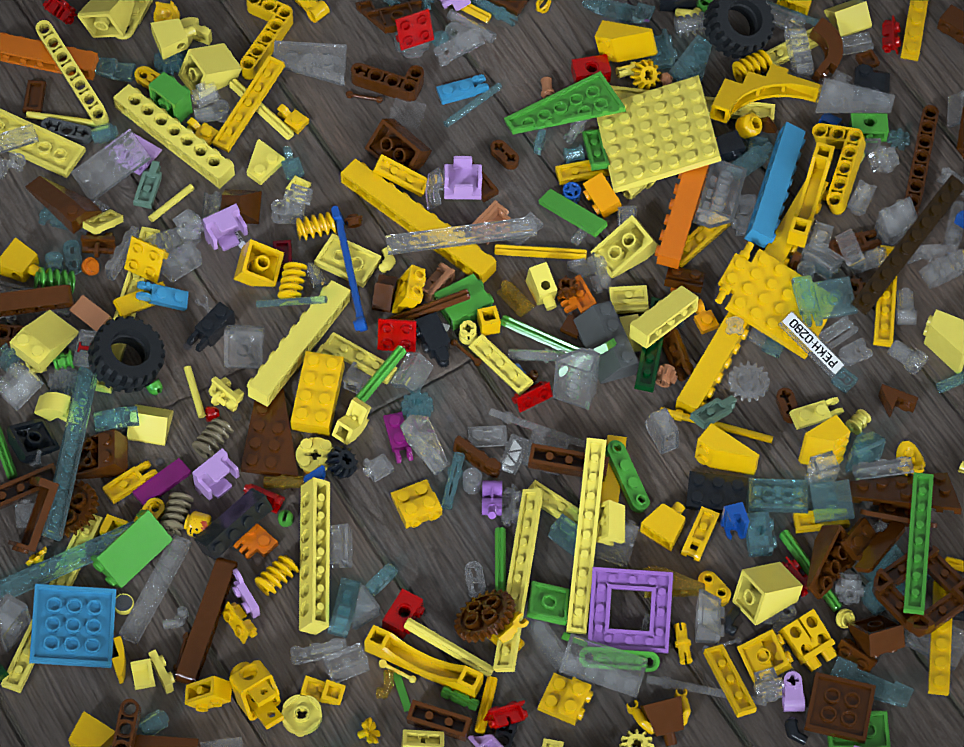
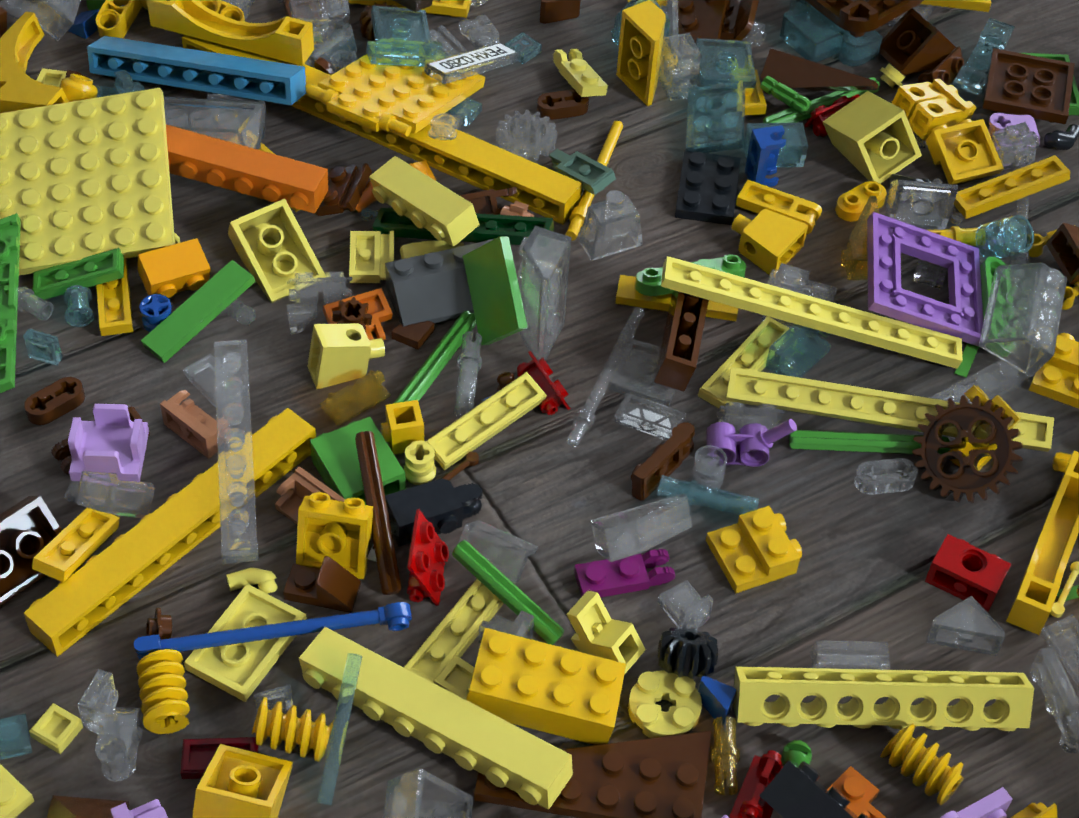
camera: 90 degrees left, 10 degrees down
(344, 607) = (969, 652): clear light blue slope -> none
(381, 579) = (907, 602): clear light blue beam -> none
(417, 404) = (565, 539): clear light blue gear -> none
(448, 647) = (1023, 507): light yellow axle -> none
(488, 436) = (617, 449): clear plate -> none
(541, 252) = (265, 359): yellow axle -> none
(548, 603) = (920, 376): bright green tile -> none
(611, 523) = (795, 281): light yellow hinge -> none
(625, 212) = (215, 248): clear slope -> none
(673, 665) = (1005, 237): none -> clear light blue wheel
(724, 452) = (647, 162): yellow slope -> none
(805, 539) = (785, 94): none -> bright green axle
(849, 588) = (853, 58): clear brick -> none
(858, 421) = (592, 37): light yellow bush -> none
(870, 546) = (792, 29): reddish brown plate -> none

